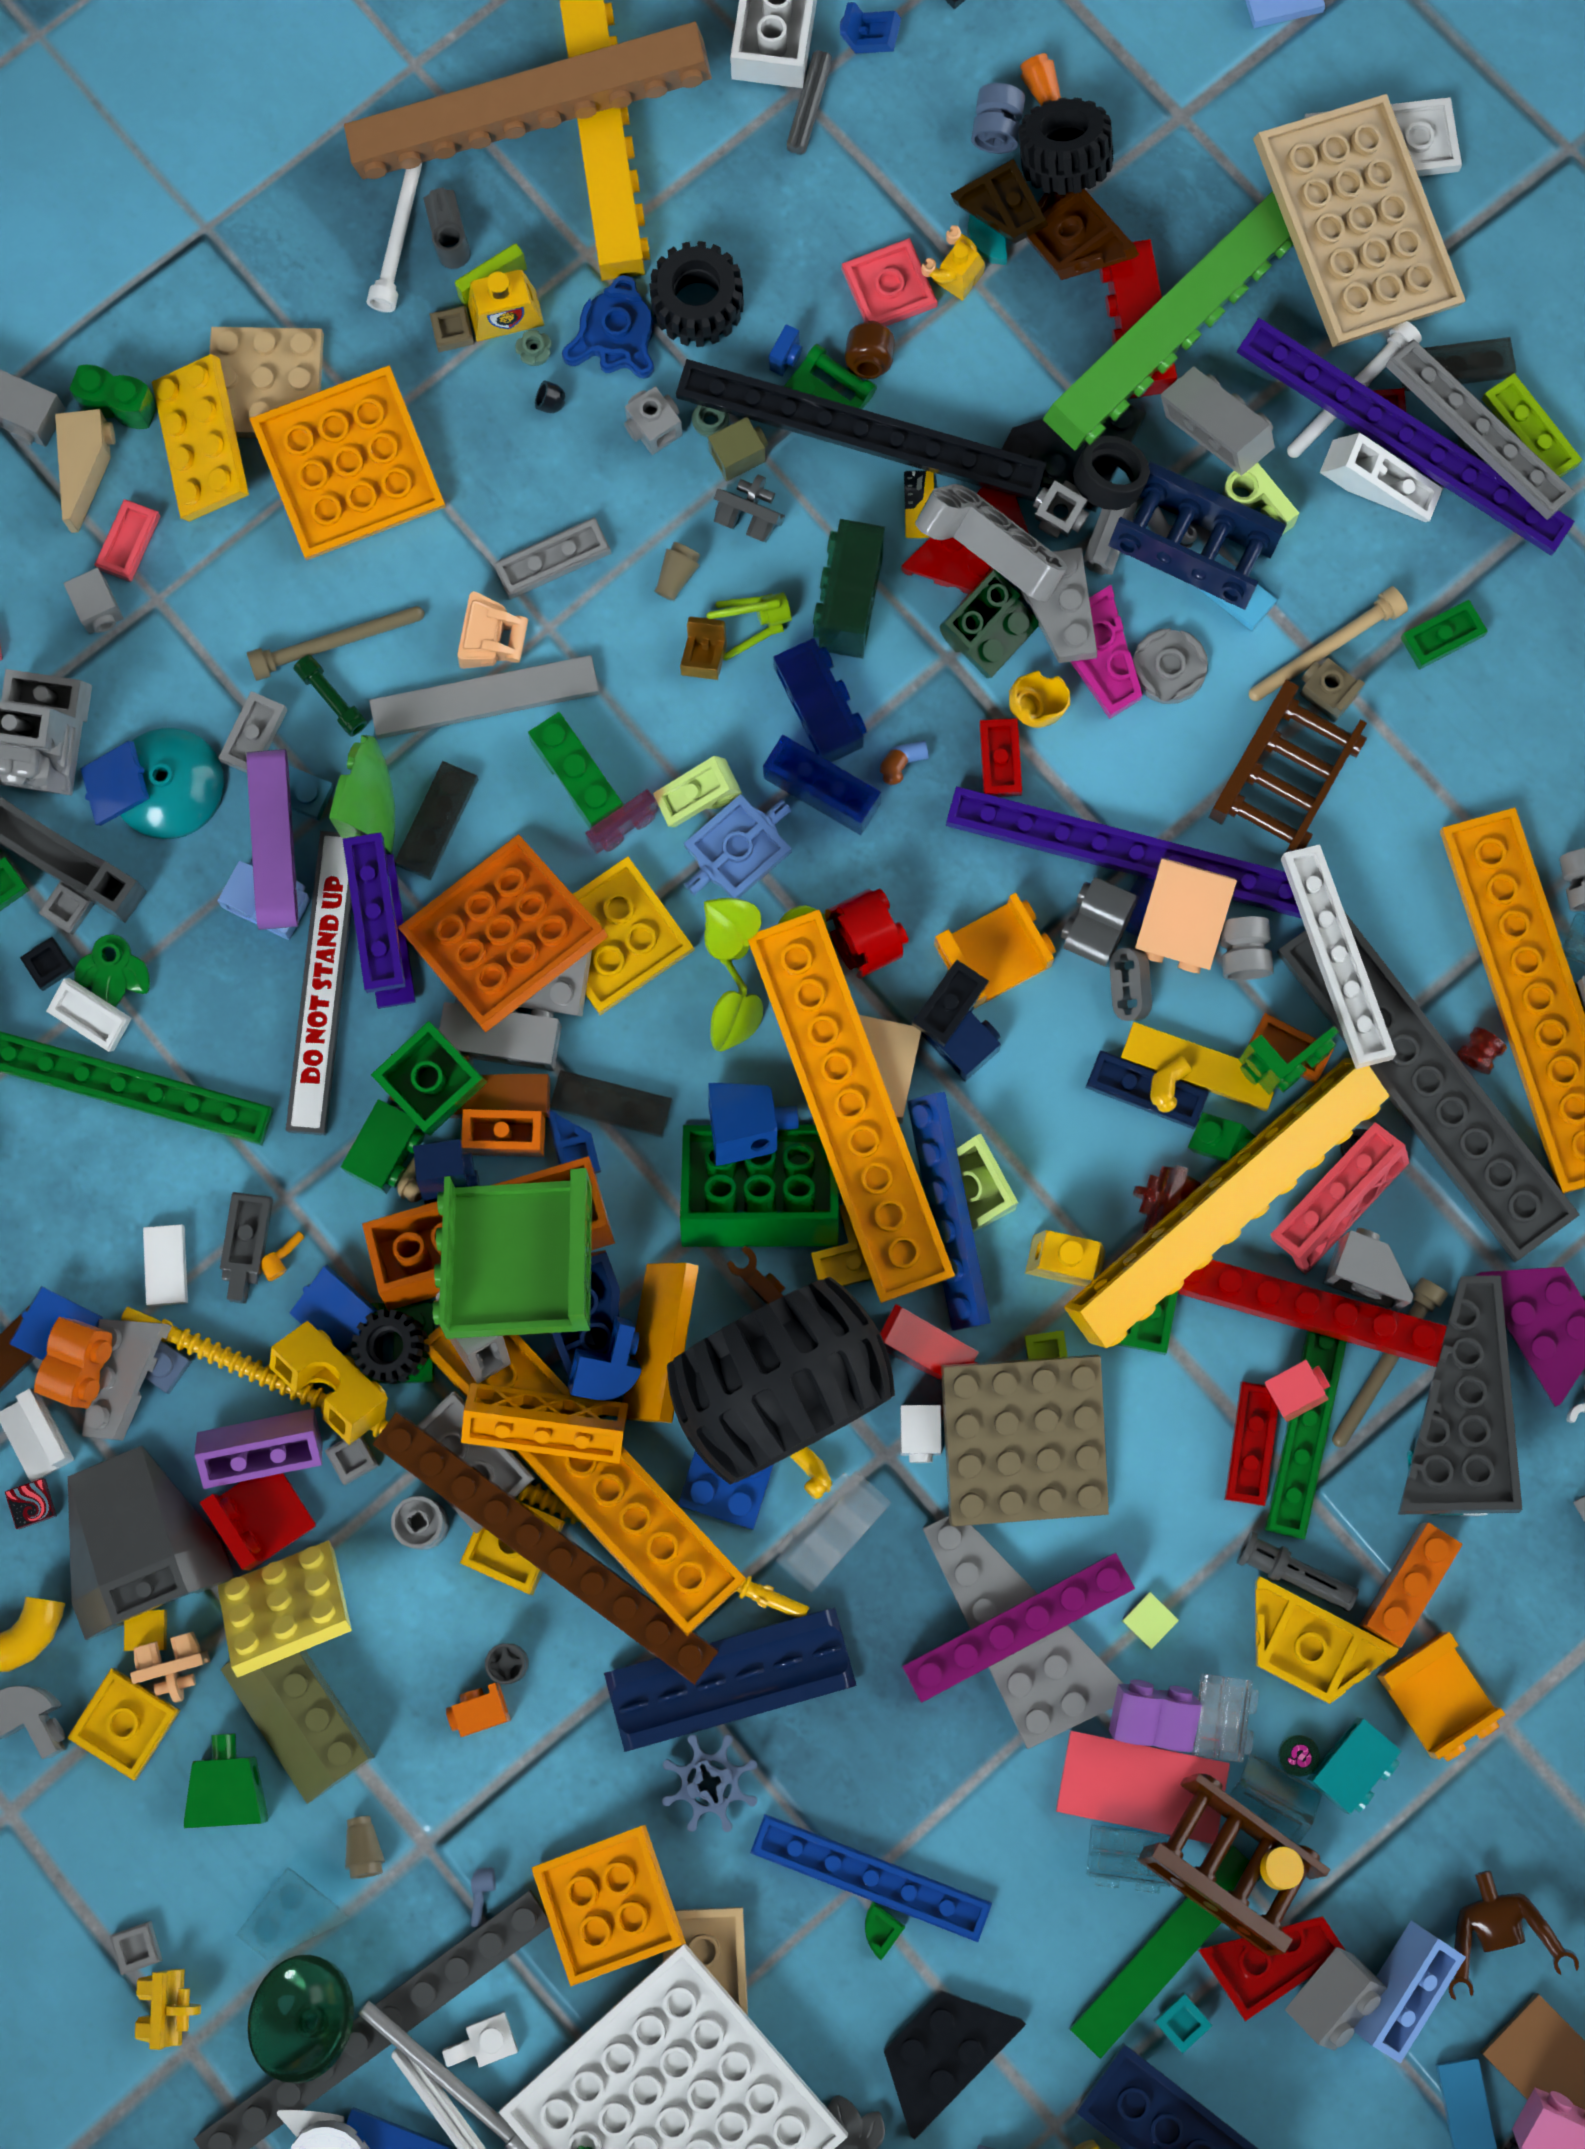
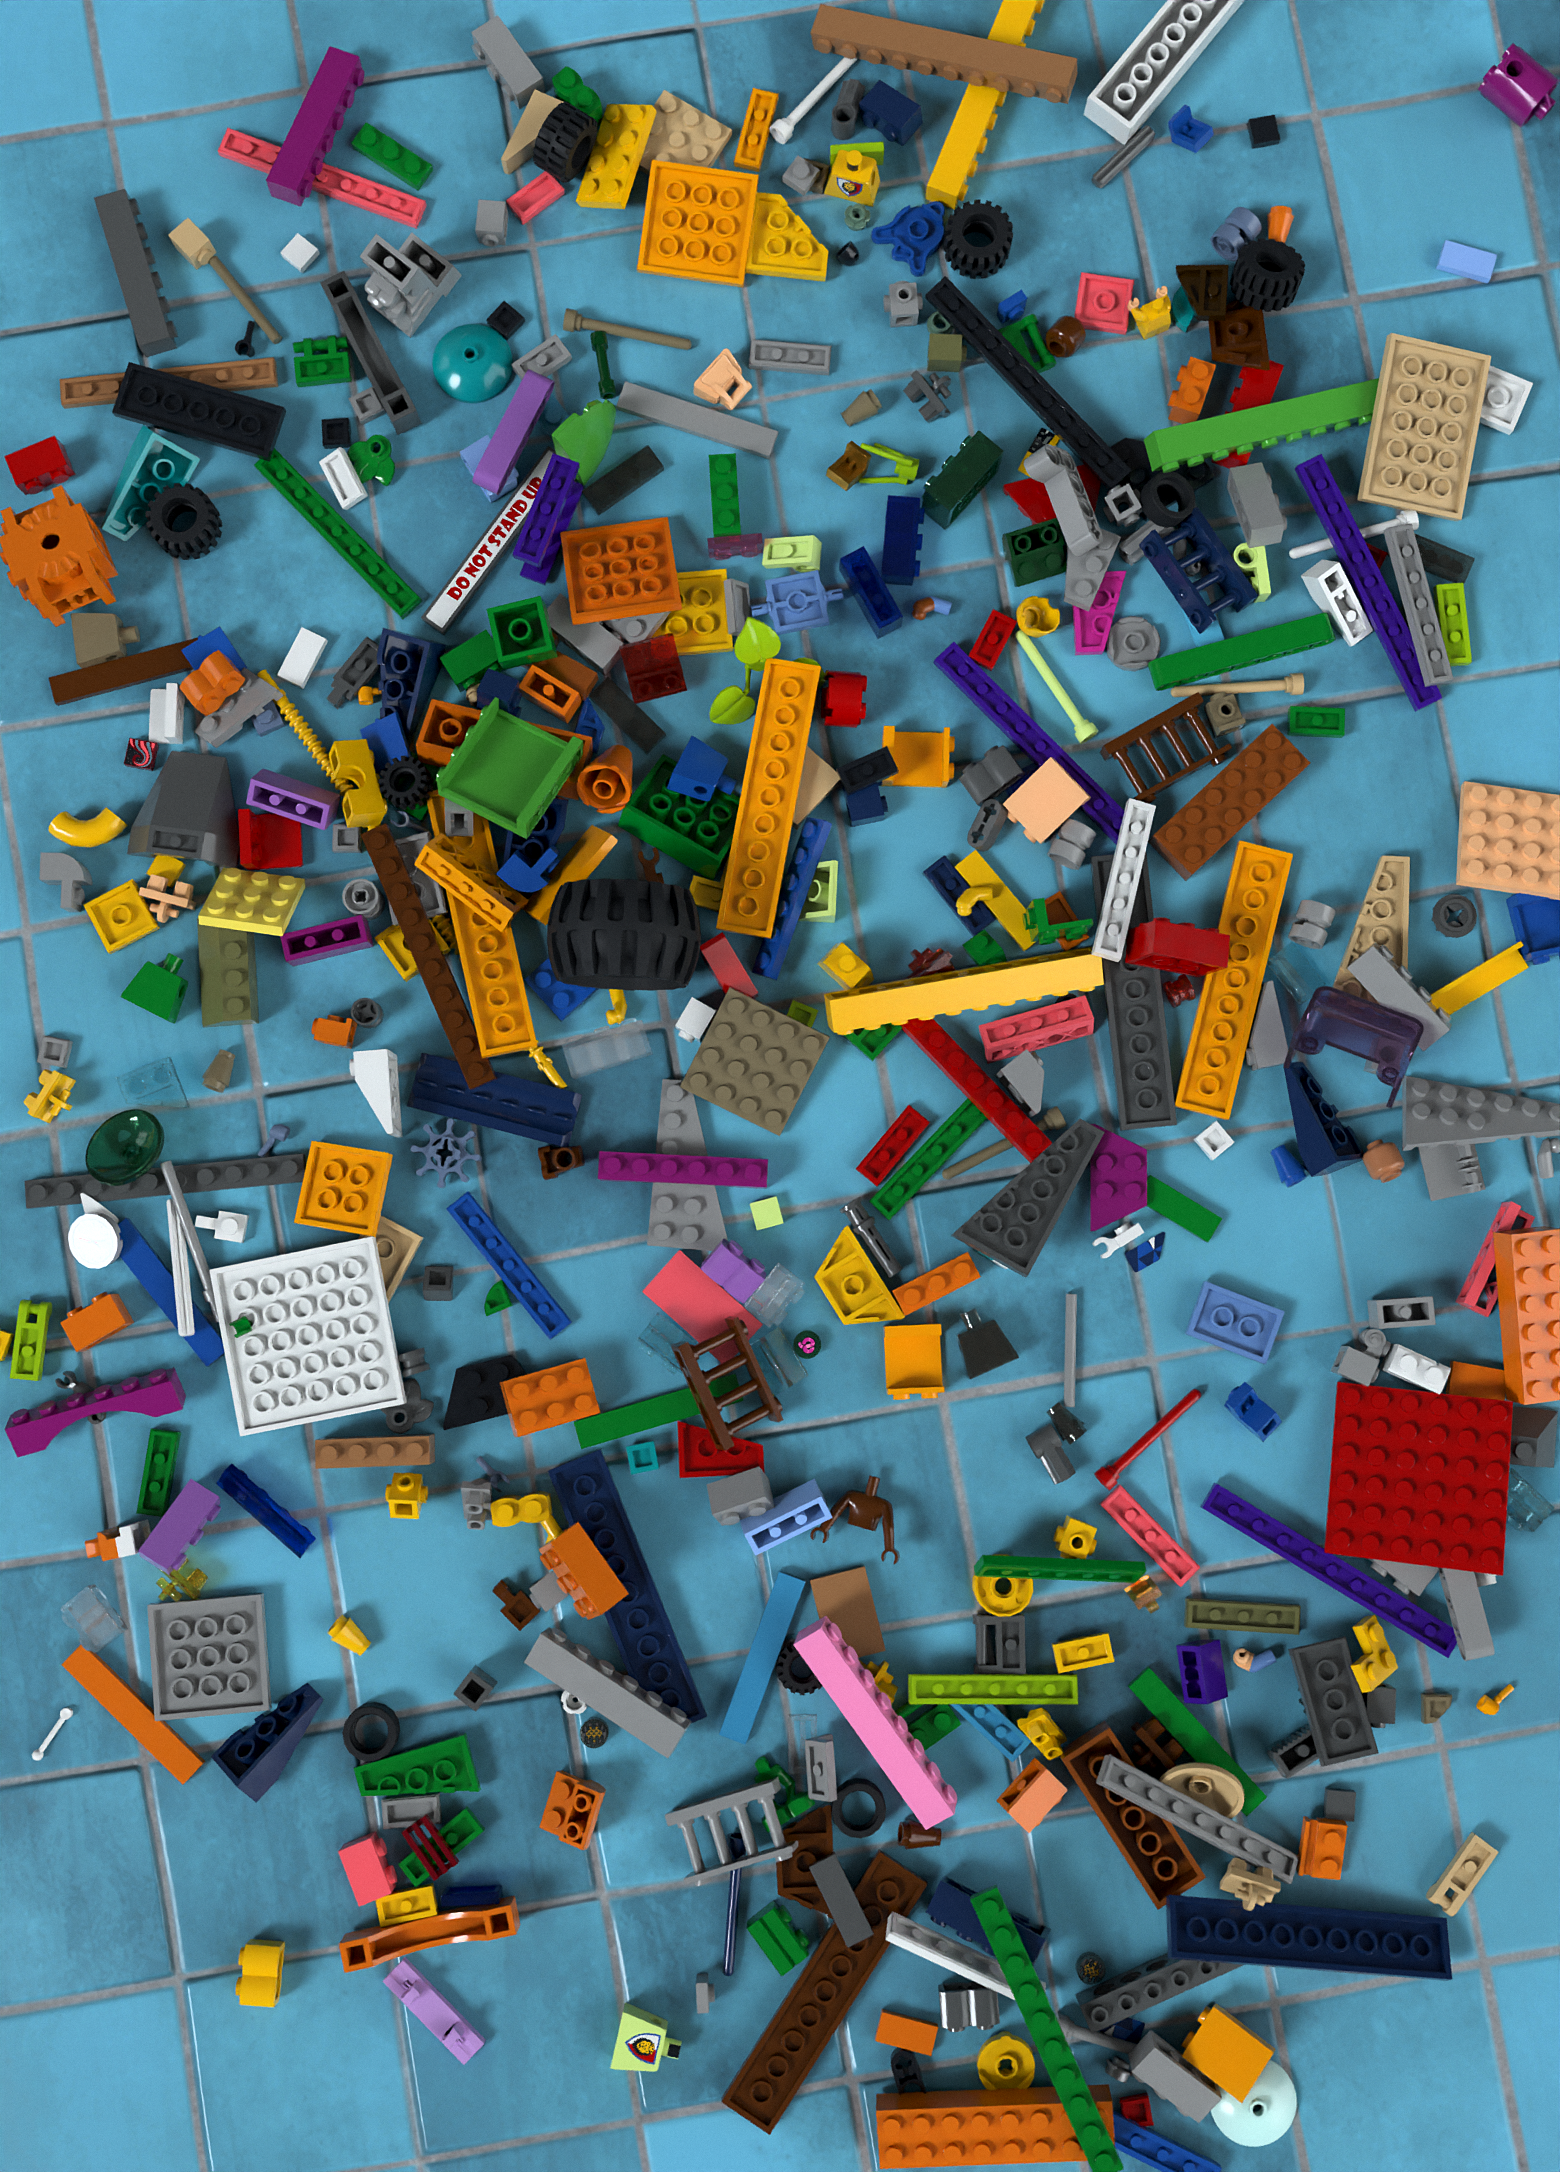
camera: 25 degrees right, 5 degrees up
(114, 783) = (439, 344): blue piece -> none
(130, 456) = (565, 142): none -> black tyre
(177, 708) = (505, 320): none -> black tile
(311, 1212) = (407, 675): none -> dark blue wedge
(350, 312) = (756, 130): none -> light orange tile
(404, 1602) = (326, 940): none -> magenta brick
(415, 1394) = (409, 823): none -> sand blue hand
(438, 336) = (800, 175): none -> light grey plate
(464, 427) = (783, 243): none -> yellow plate
(503, 204) = (890, 113): none -> dark blue brick
(574, 1743) = (379, 1081): none -> white slope
(611, 1028) = (653, 668): none -> clear red brick
(641, 1198) = (607, 780): none -> orange cone
(671, 895) = (737, 605): none -> light grey tile
(795, 1954) = (438, 1283): none -> dark grey slope
(826, 2075) = (413, 1362): none -> dark grey wheel
(850, 1711) = (555, 1162): none -> reddish brown plate
(1024, 2017) = (549, 1397): none -> orange brick
(1058, 329) = (1193, 387): none -> orange brick
(1173, 800) = (1084, 729): none -> yellowish green piece
(1281, 1868) = (754, 1401): yellow tile -> none
(1298, 1389) = (937, 1127): coral brick -> none
(1304, 602) = (1241, 651): none -> green beam
(1355, 1766) = (835, 1370): teal brick -> none
(1401, 790) = (1228, 802): none -> dark orange brick
(1452, 1000) = (1177, 947): none -> red brick
(1514, 1627) = (983, 1345): none -> clear smoke torso

